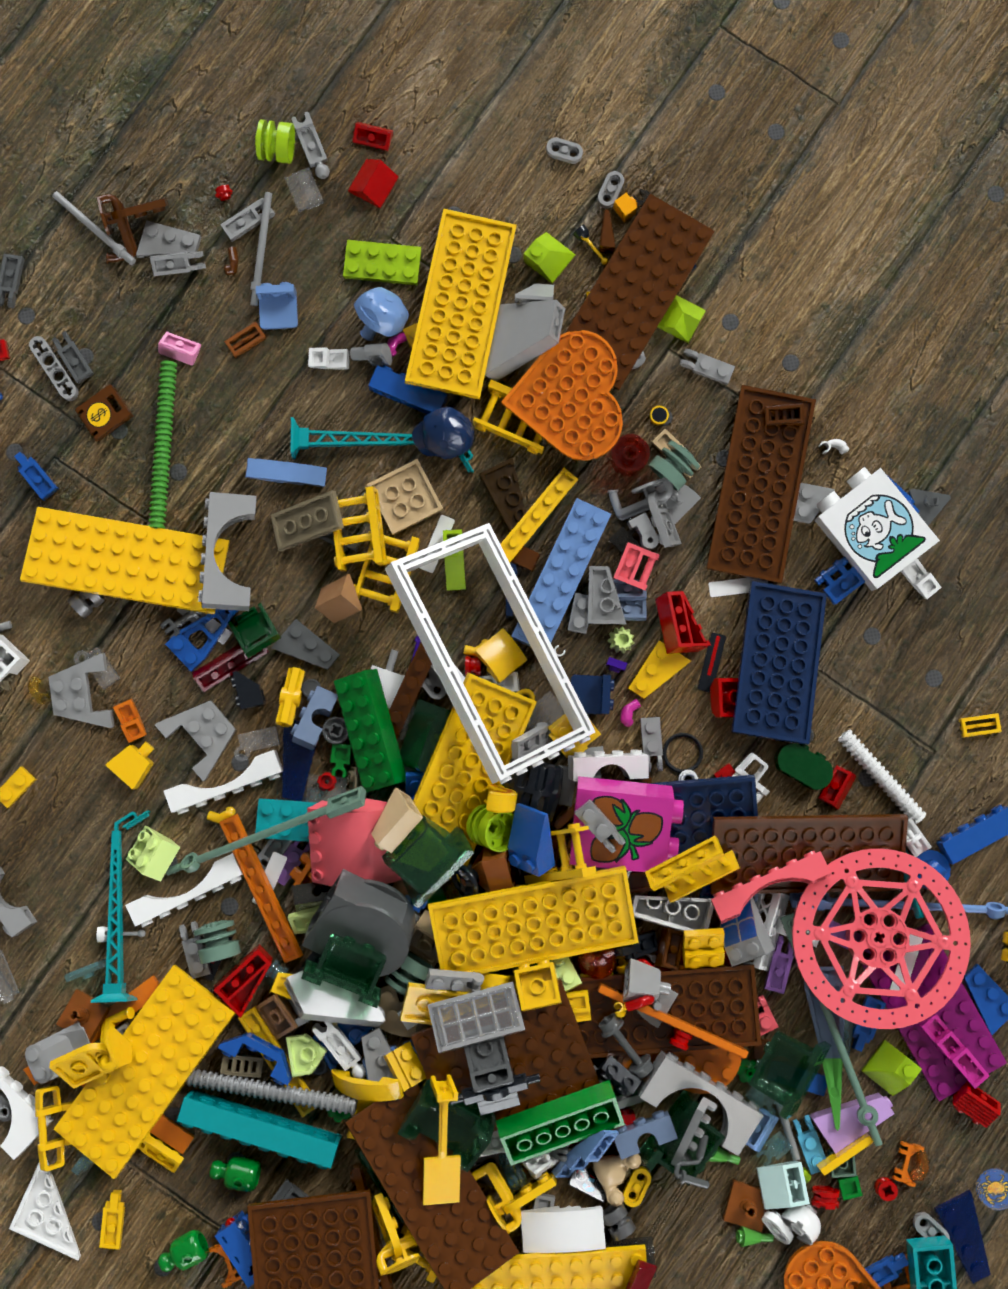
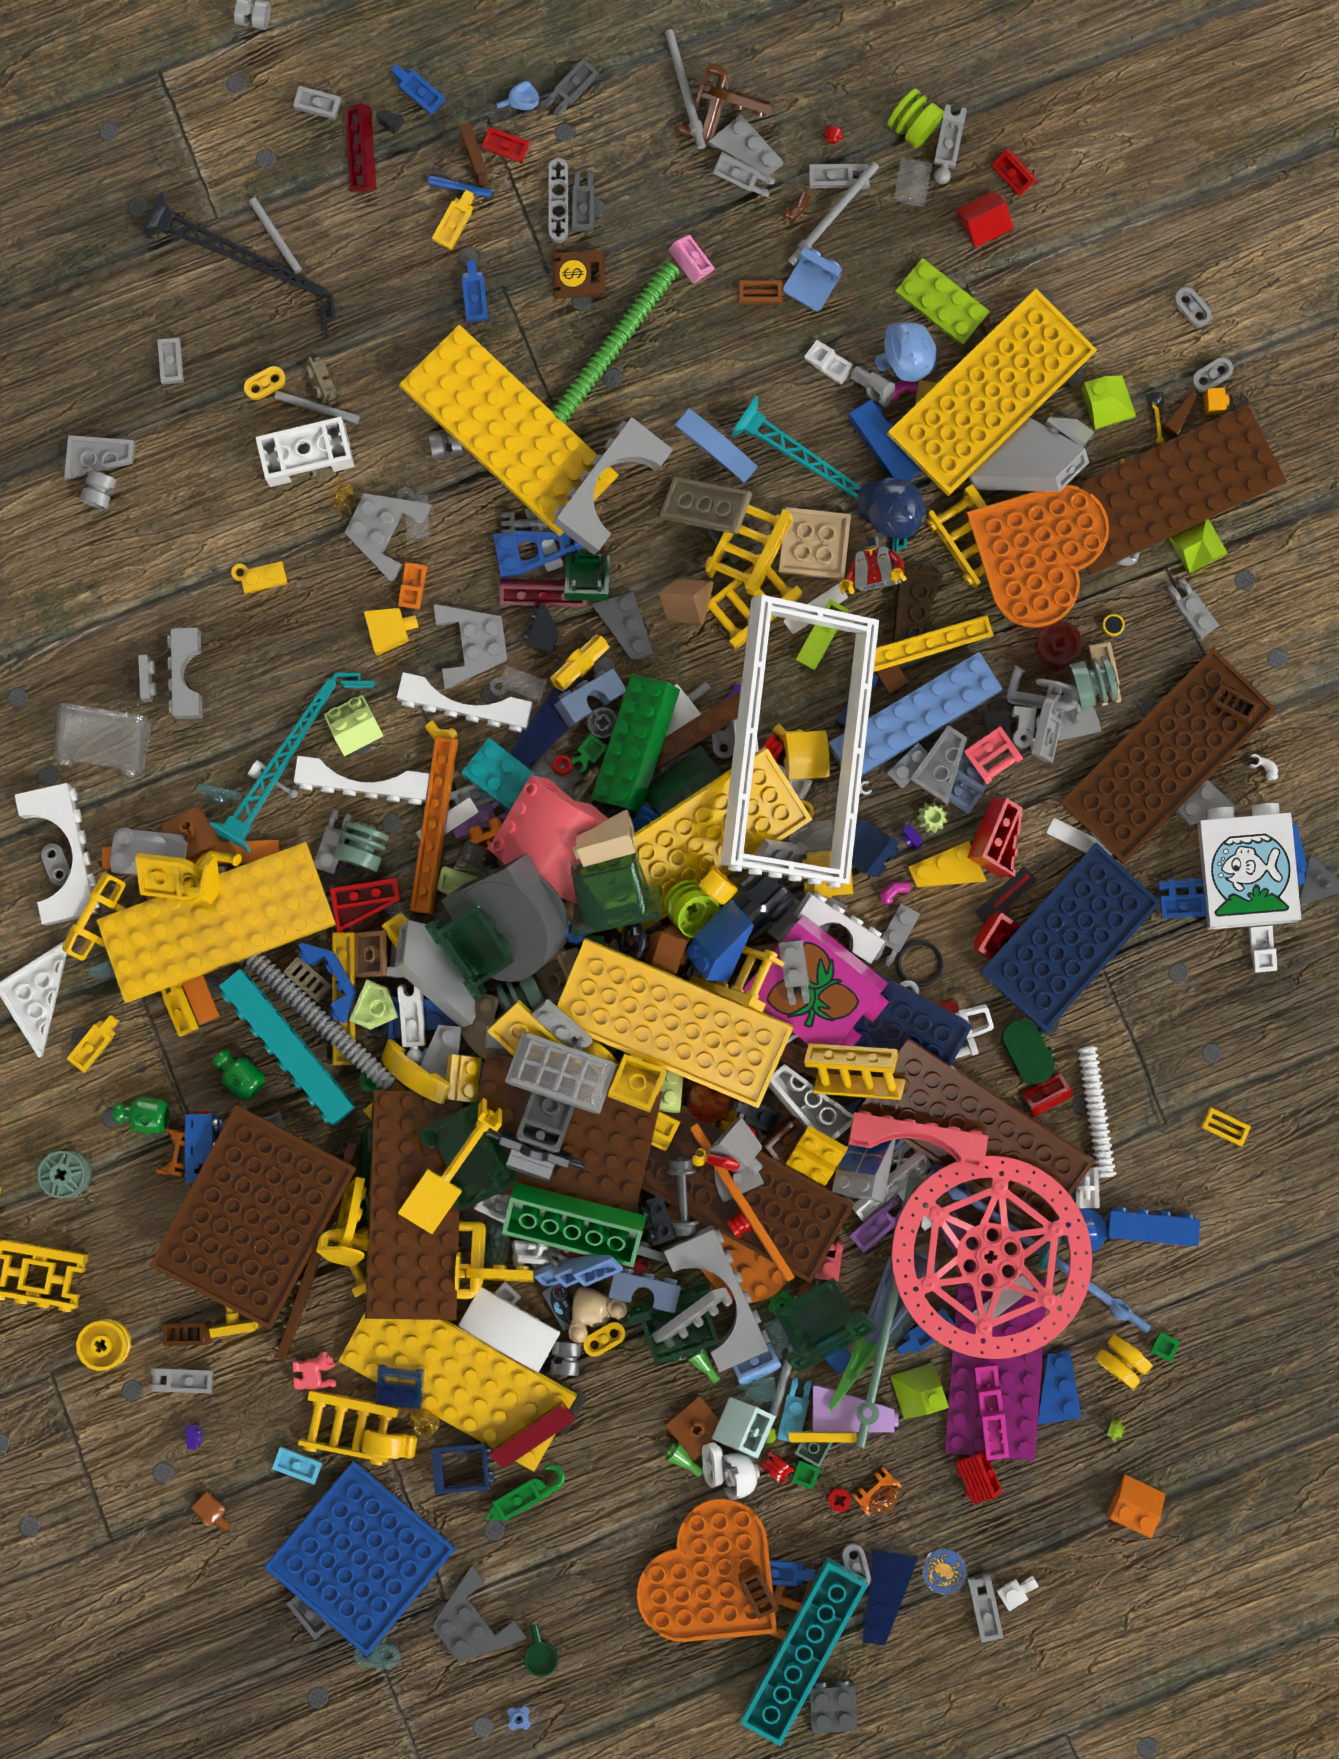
camera: 30 degrees right, 0 degrees up
(335, 806) = (560, 789): sand green bar -> none
(460, 487) = (873, 568): none -> torso
(681, 1175) = (655, 1349): dark grey piece -> none

